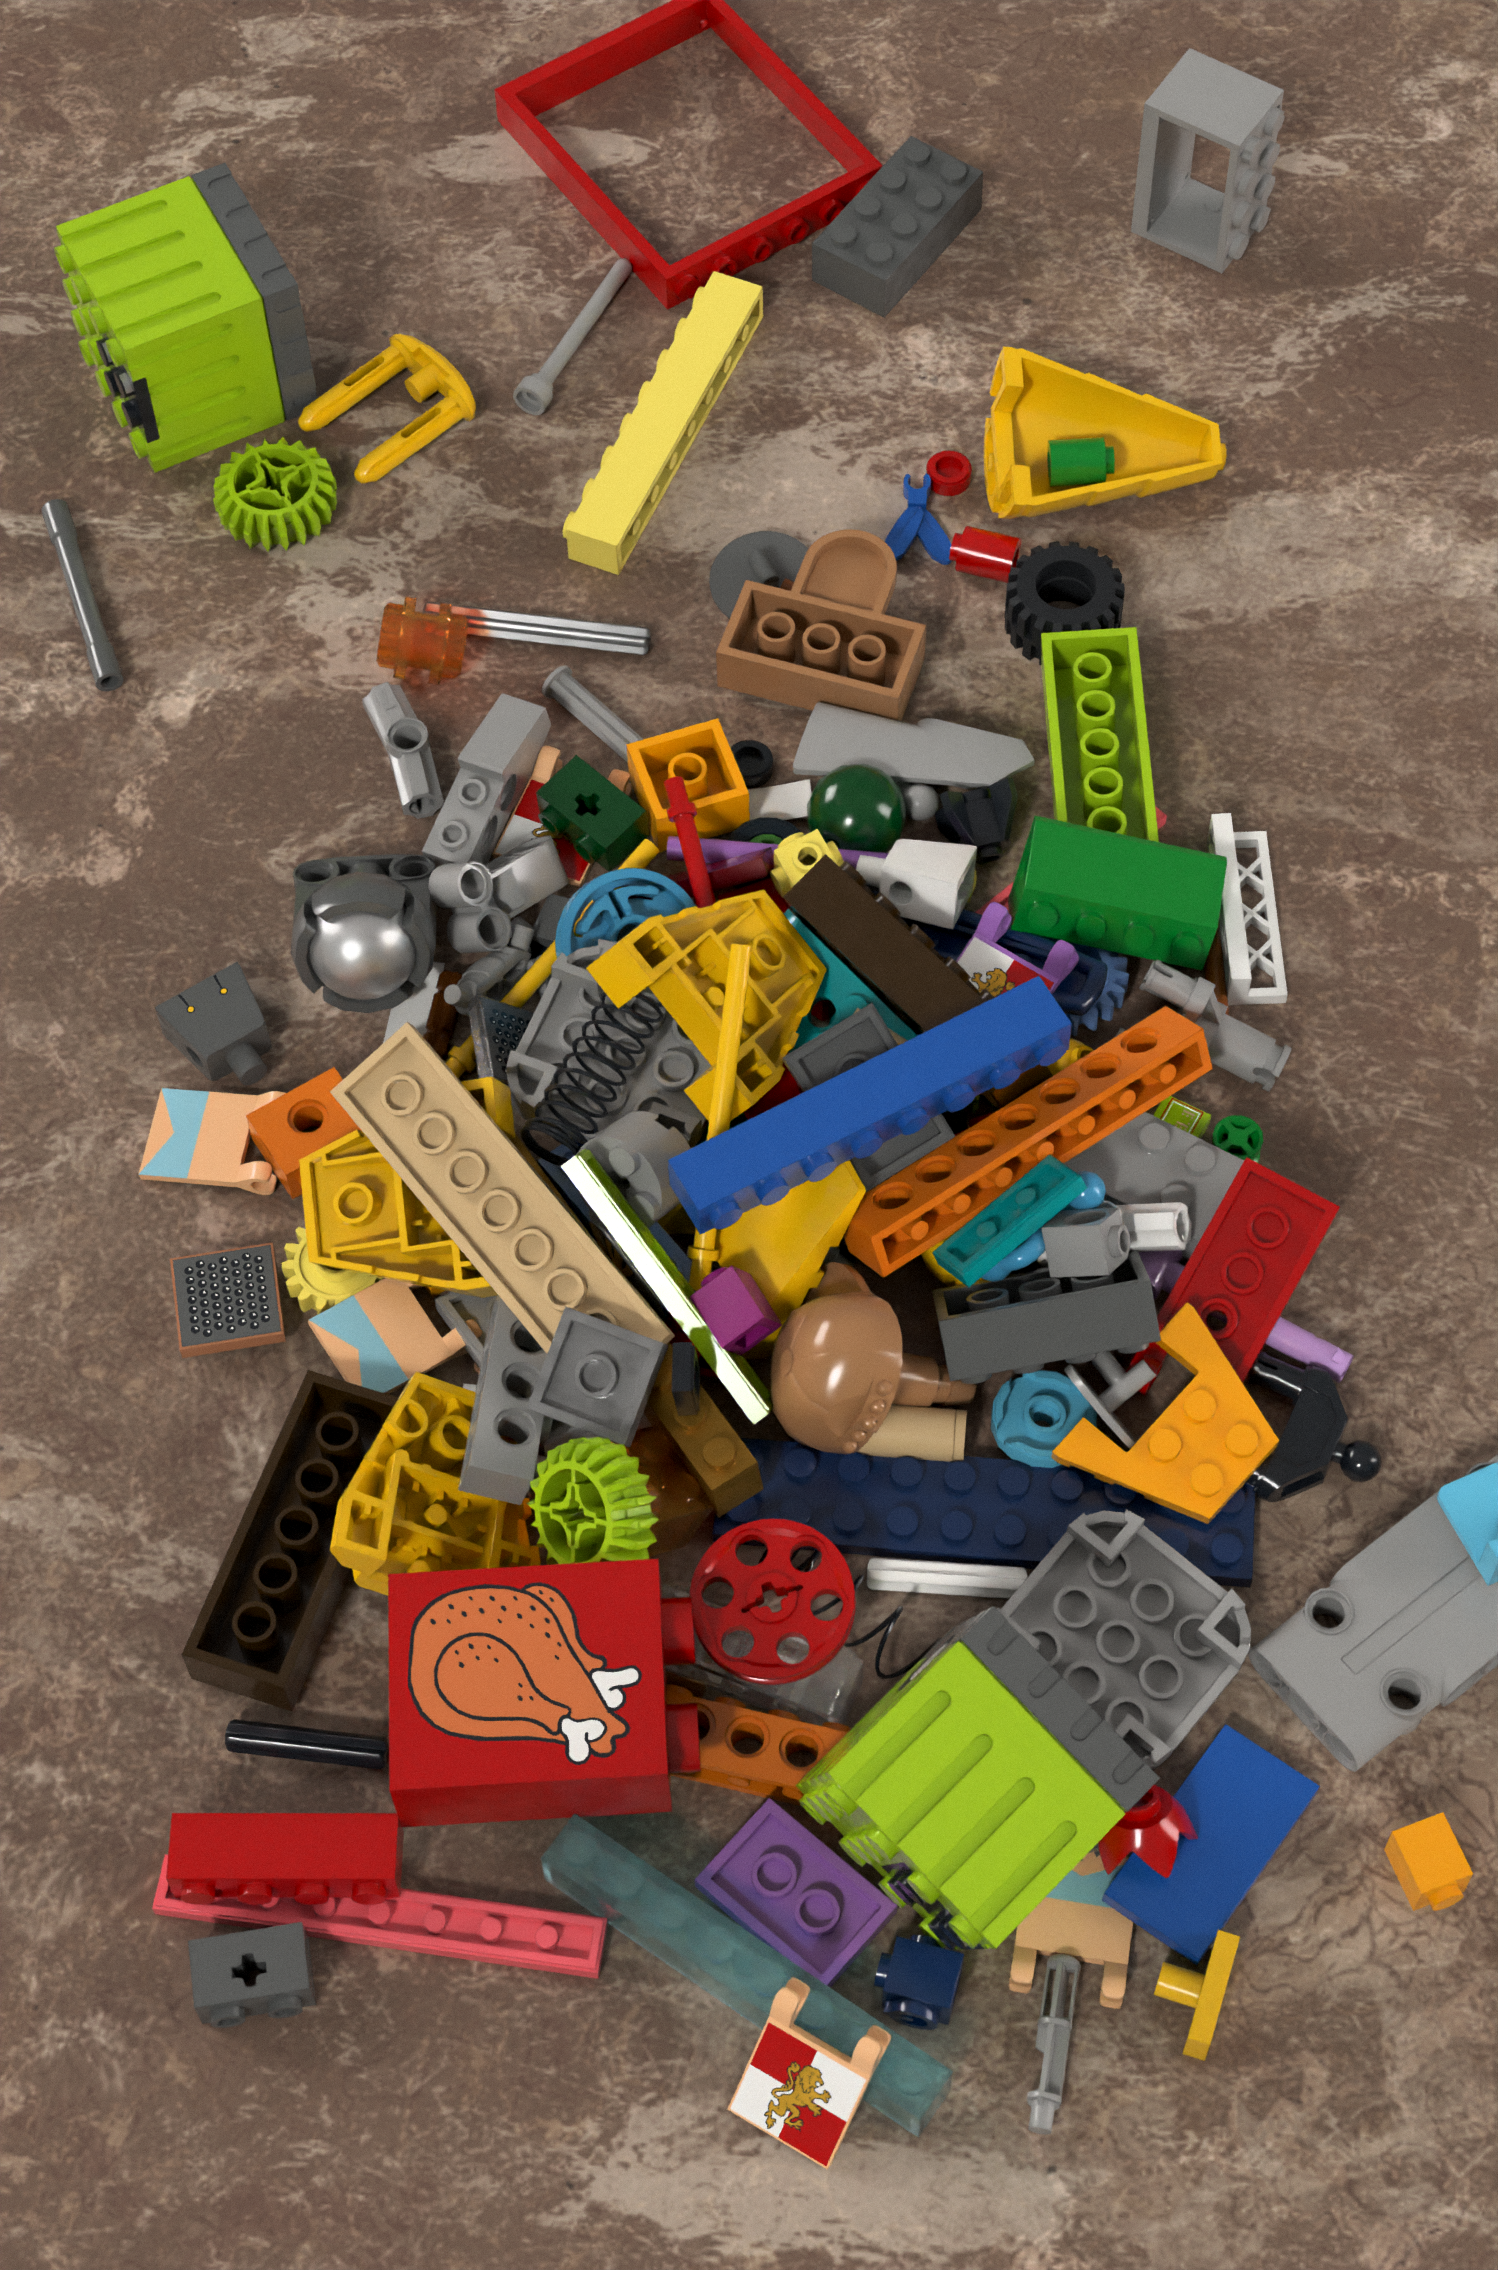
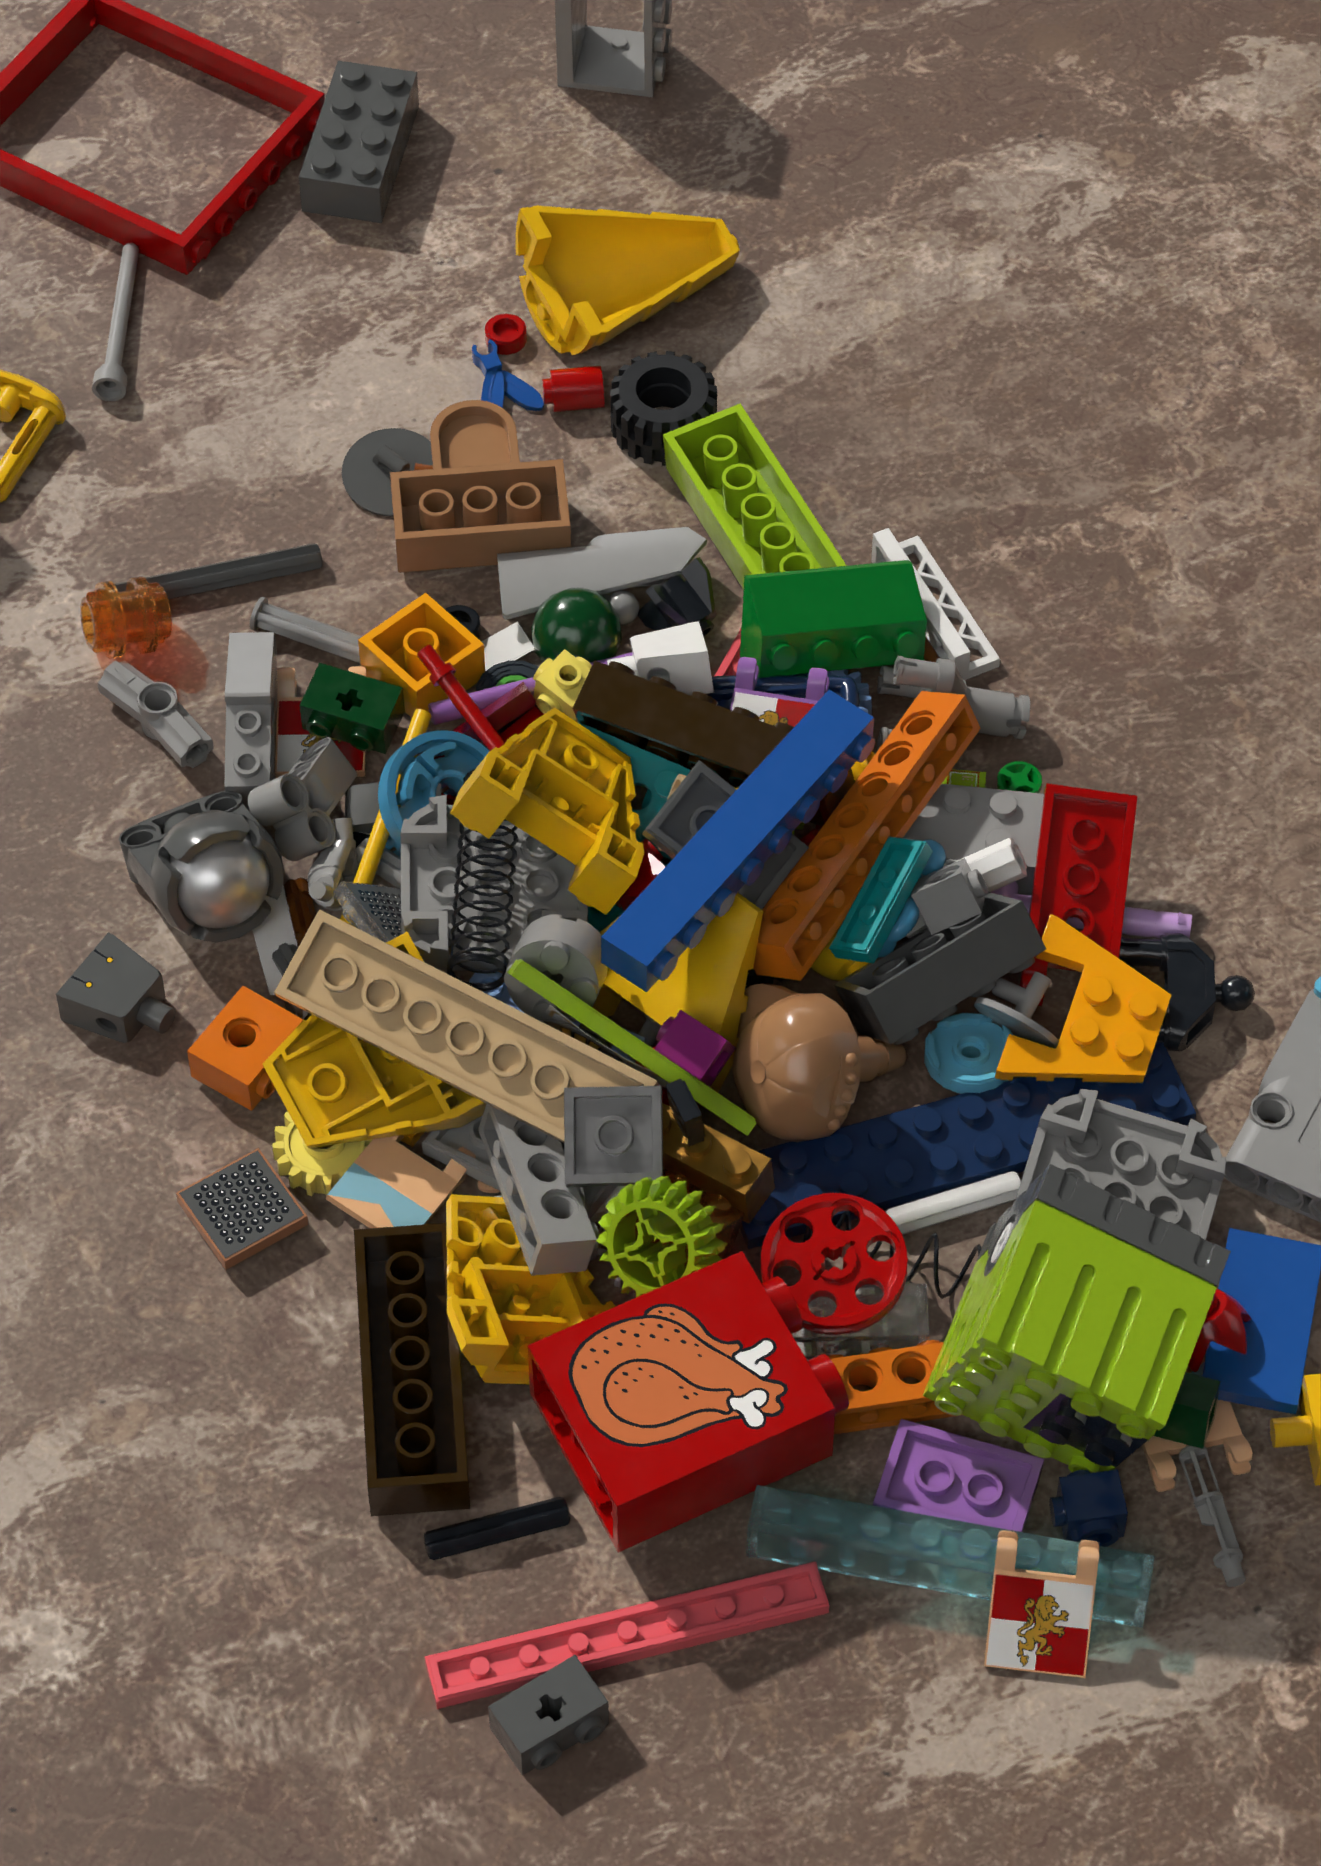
camera: 25 degrees left, 5 degrees down
(205, 1140) = (151, 1089): light nougat flag -> none
(285, 1857) = (533, 1612): red brick -> none
(663, 423) = (240, 369): light yellow brick -> none
(703, 1250) = (639, 1014): yellow bar -> none
(920, 1434) = (884, 1098): tan pin -> none
(1073, 1915) = (1192, 1411): none -> dark green brick
(1079, 461) = (617, 287): green brick -> none

